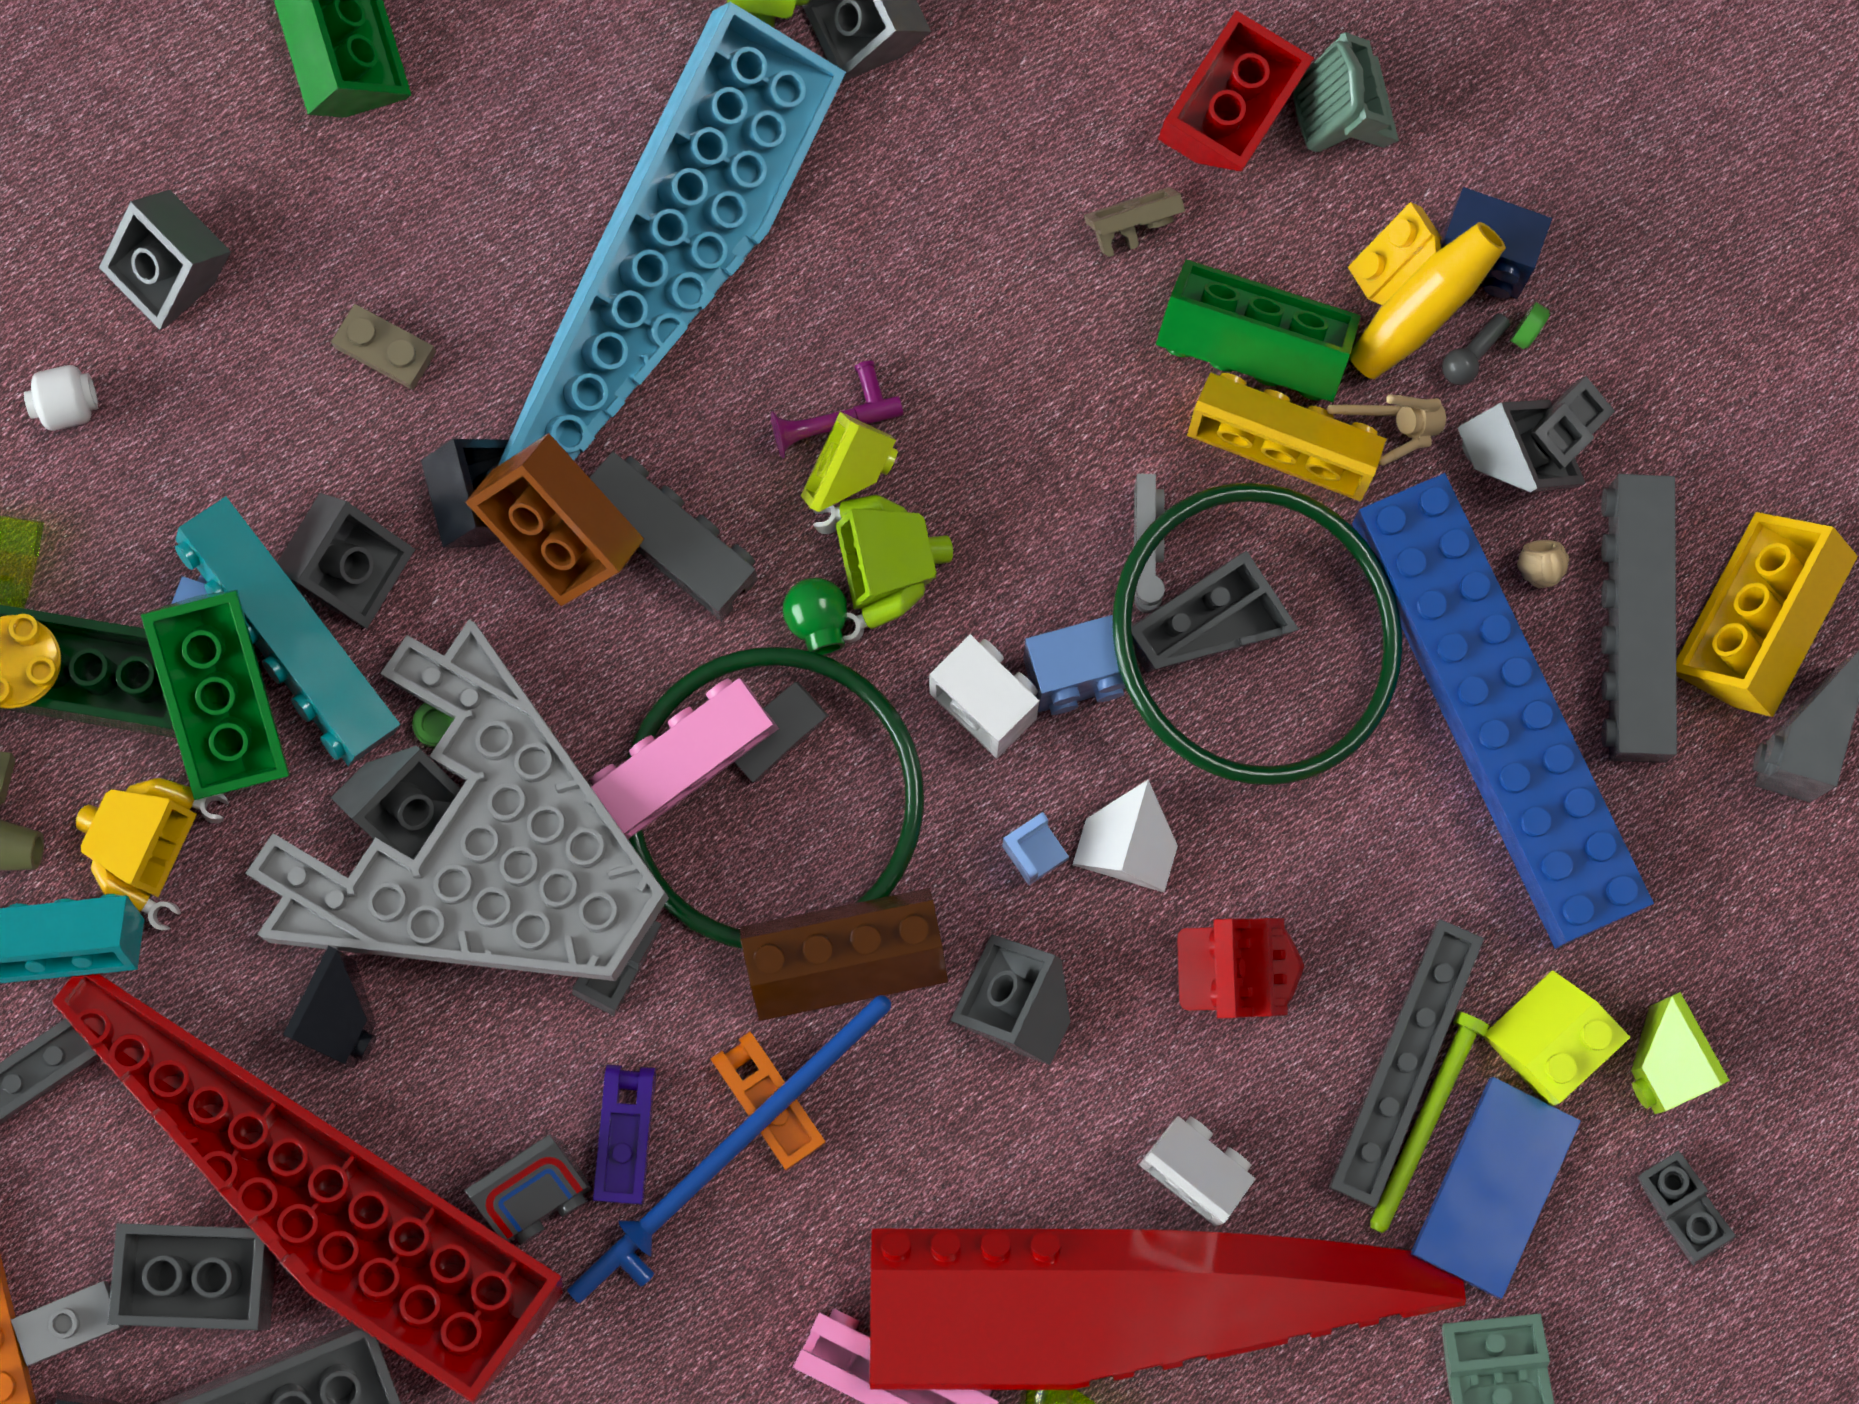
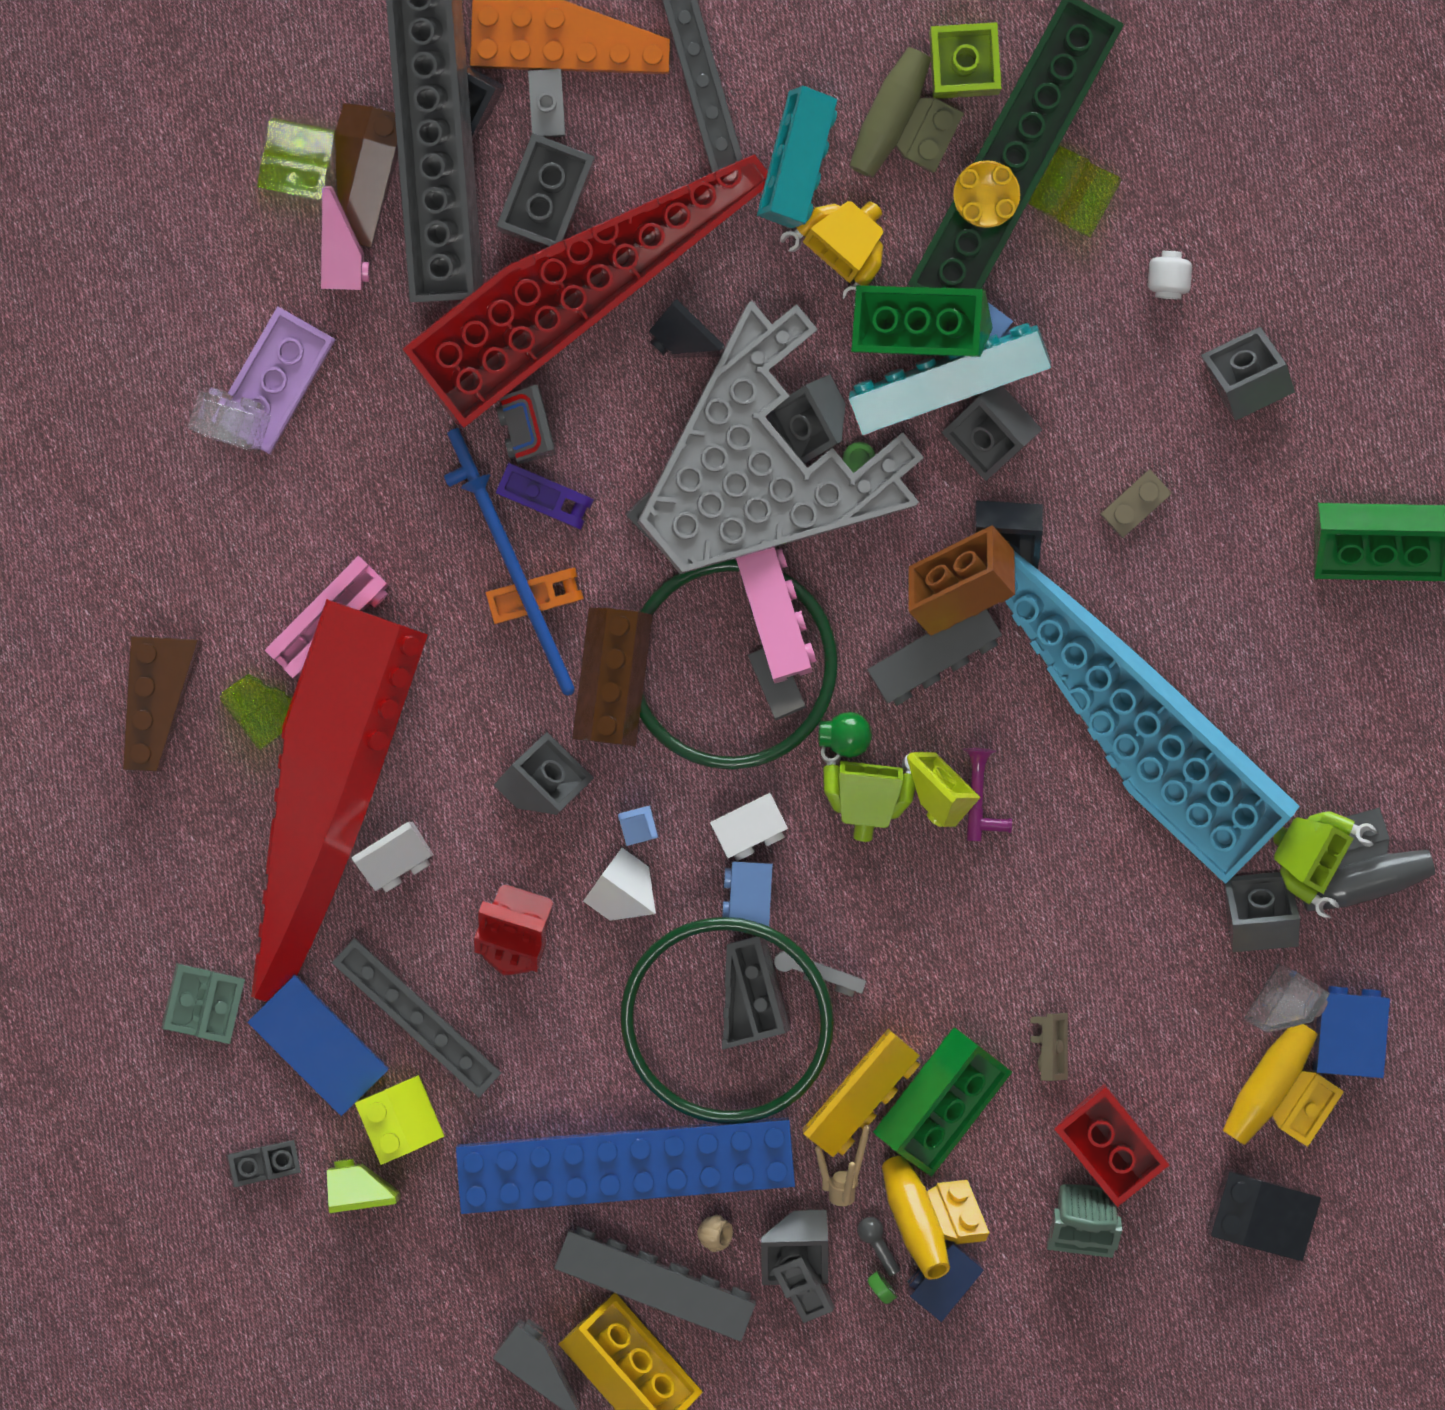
camera: 105 degrees right, 10 degrees up
(1426, 1121) = (376, 1017): lime bar -> none

